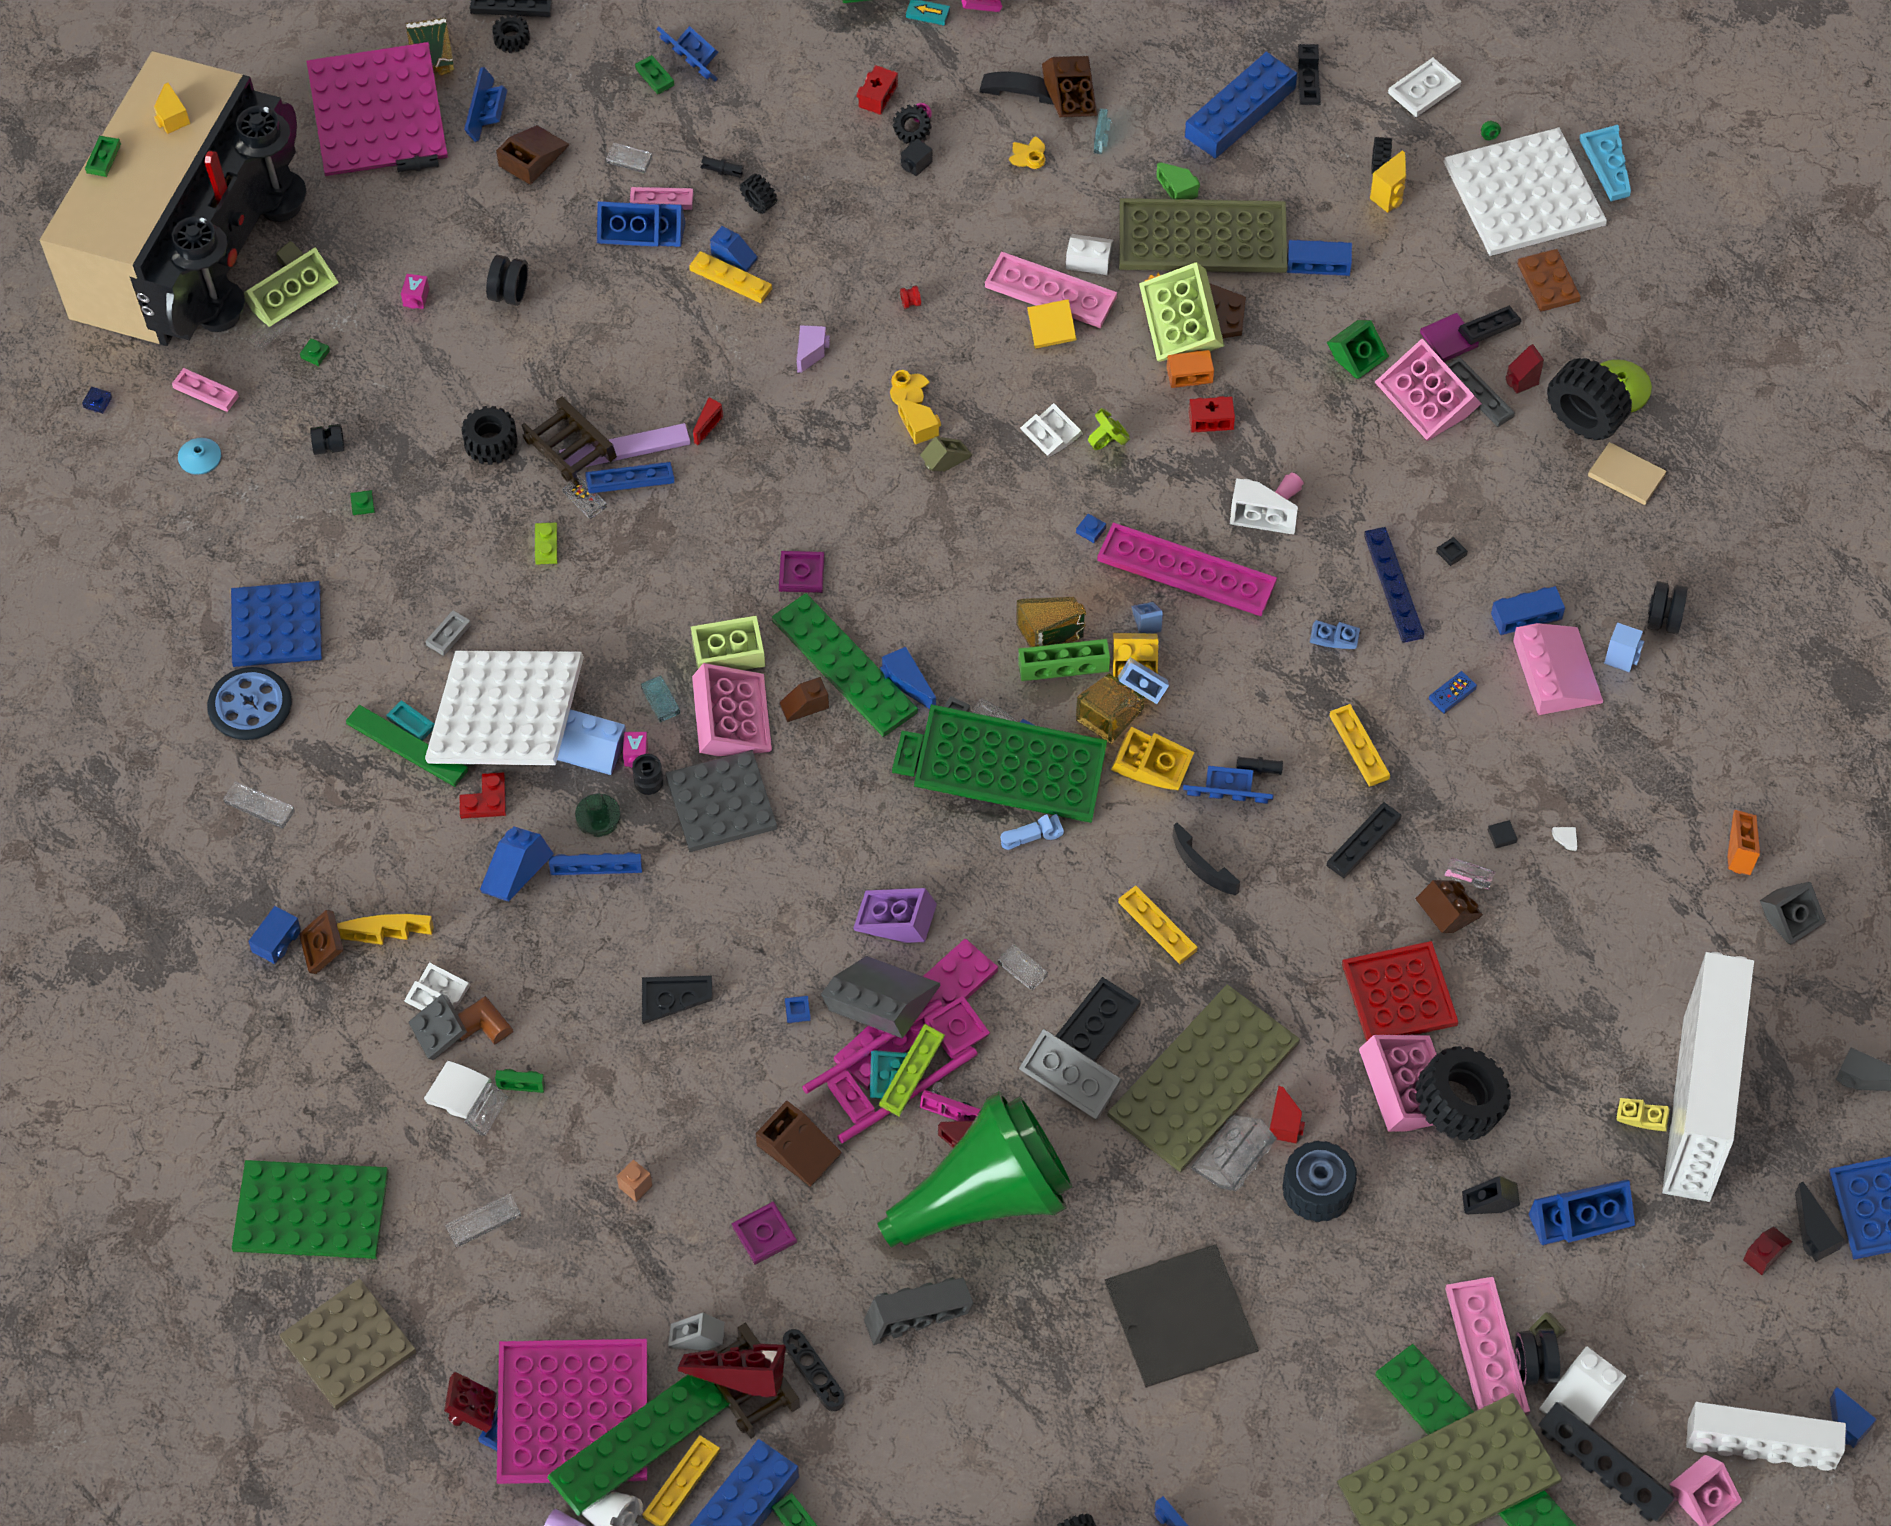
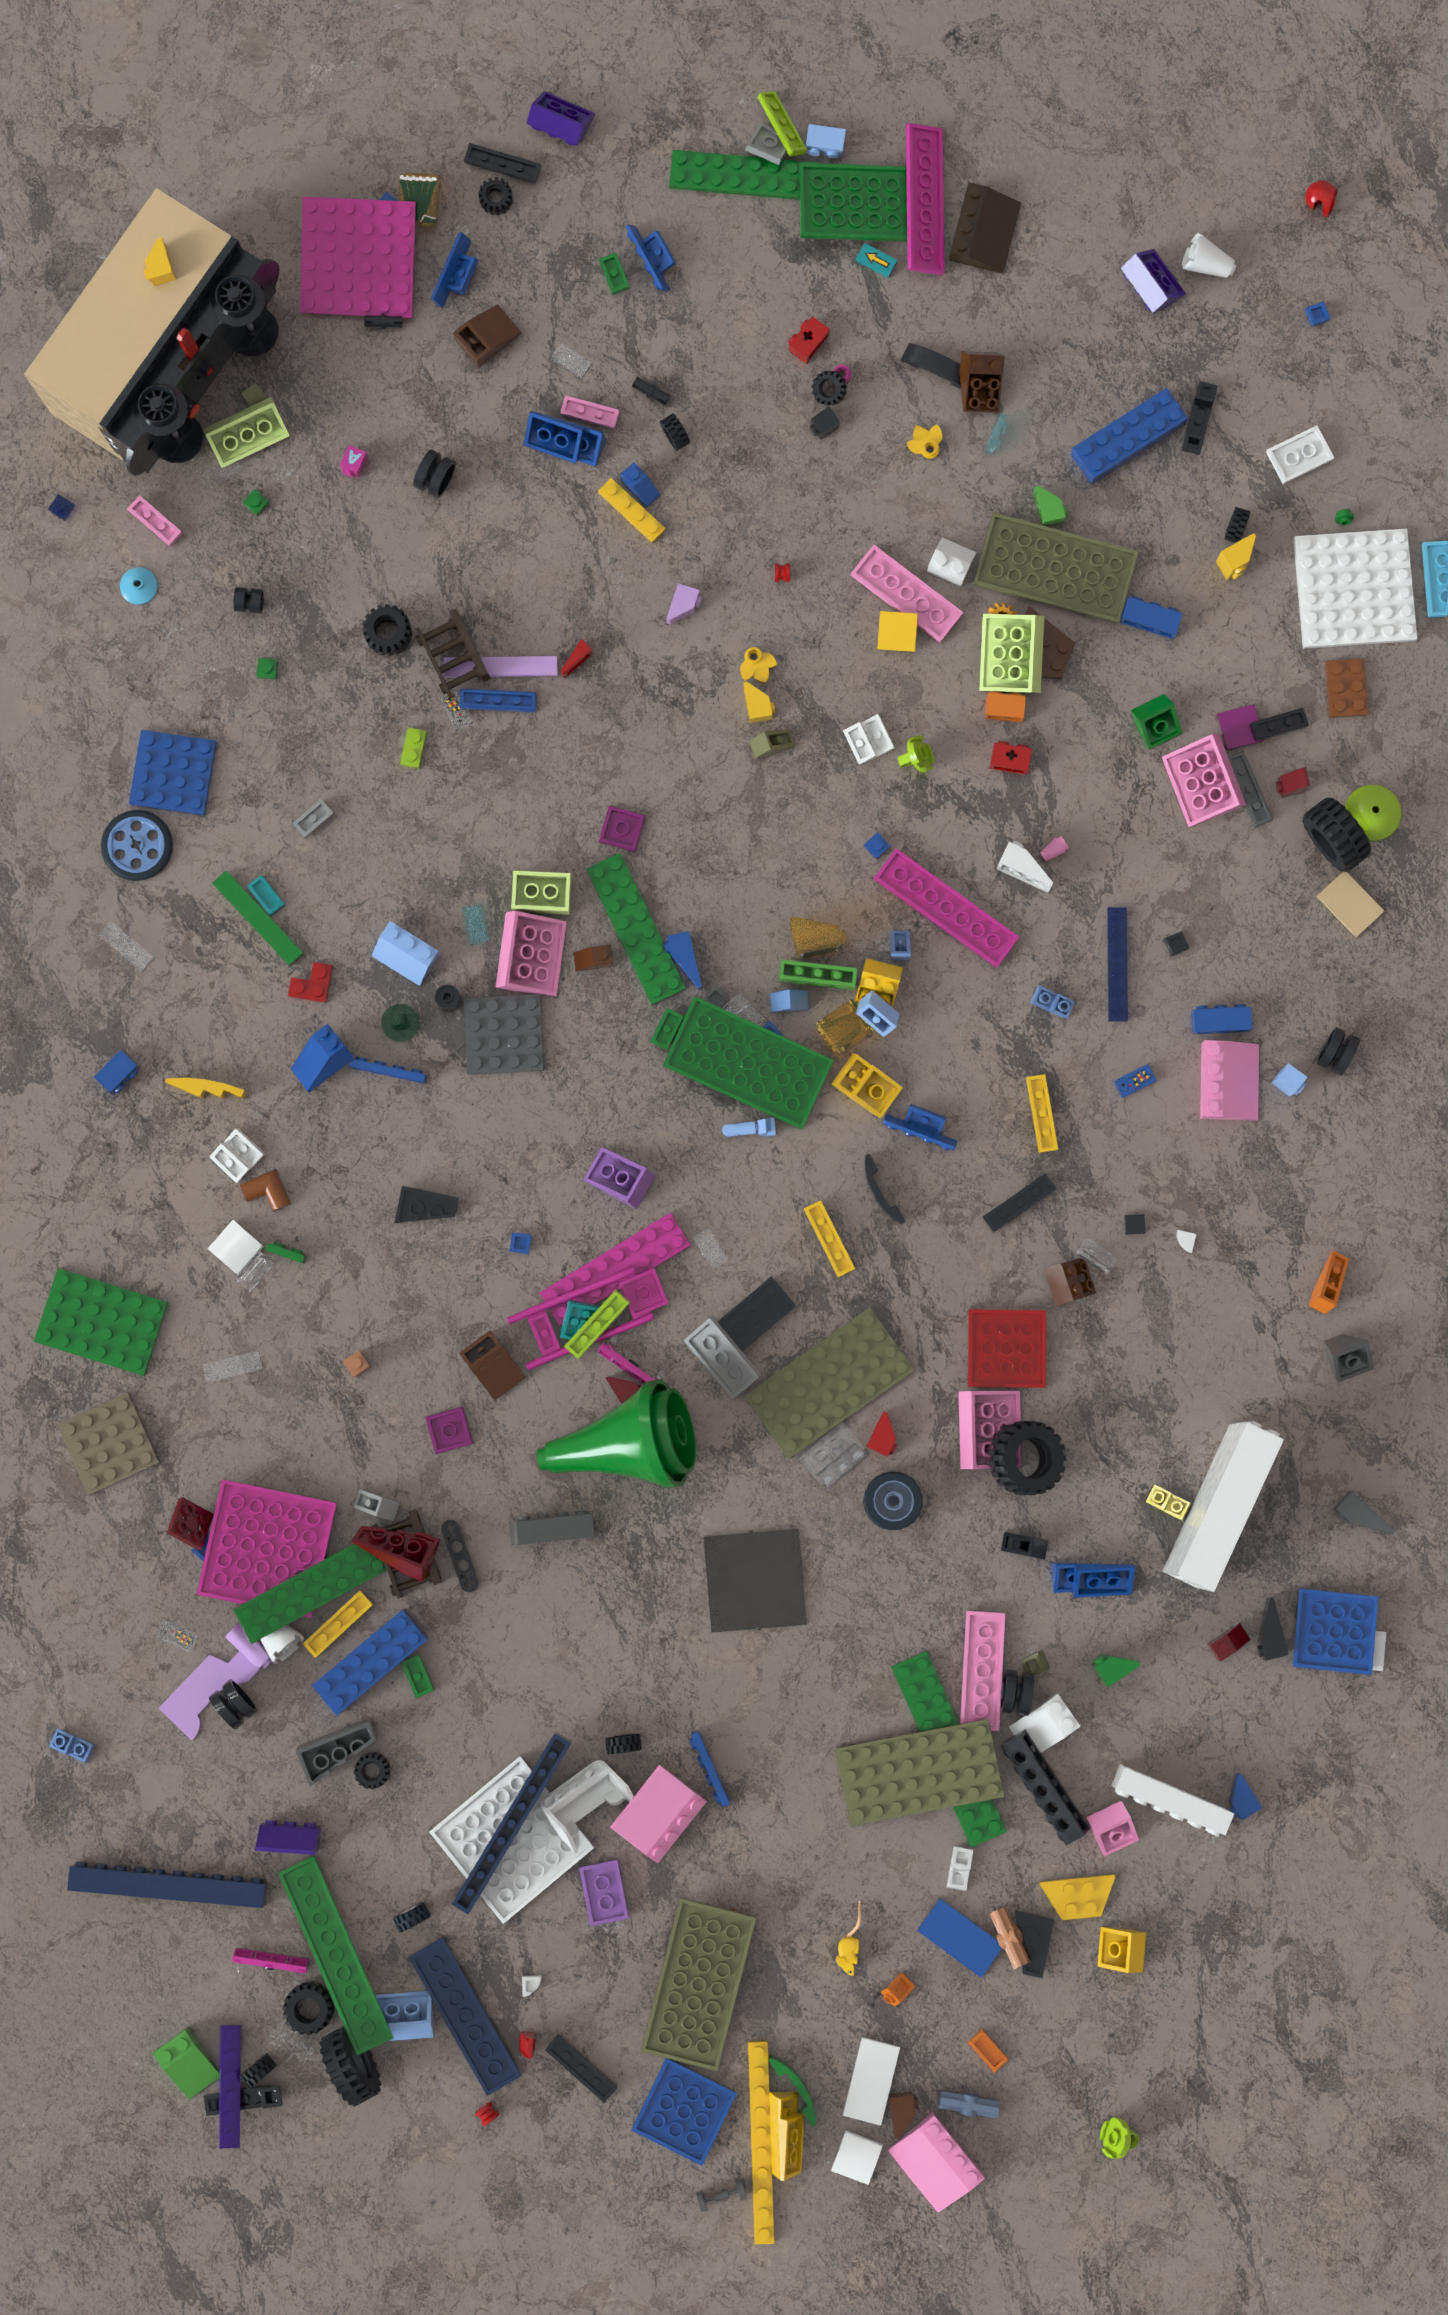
camera: 15 degrees right, 25 degrees up
(103, 156) = (92, 299): green plate -> none
(321, 942) = (152, 1091): reddish brown plate -> none
(437, 1026) = (230, 1189): dark grey plate -> none
(505, 707) = (343, 908): white plate -> none
(634, 745) = (443, 971): dark pink brick -> none
(879, 995) = (589, 1251): dark grey slope -> none
(1038, 696) = (789, 1001): none -> medium blue slope
(1260, 765) = (953, 1112): black pin -> none
(1642, 1302) = (1113, 1668): none -> green slope

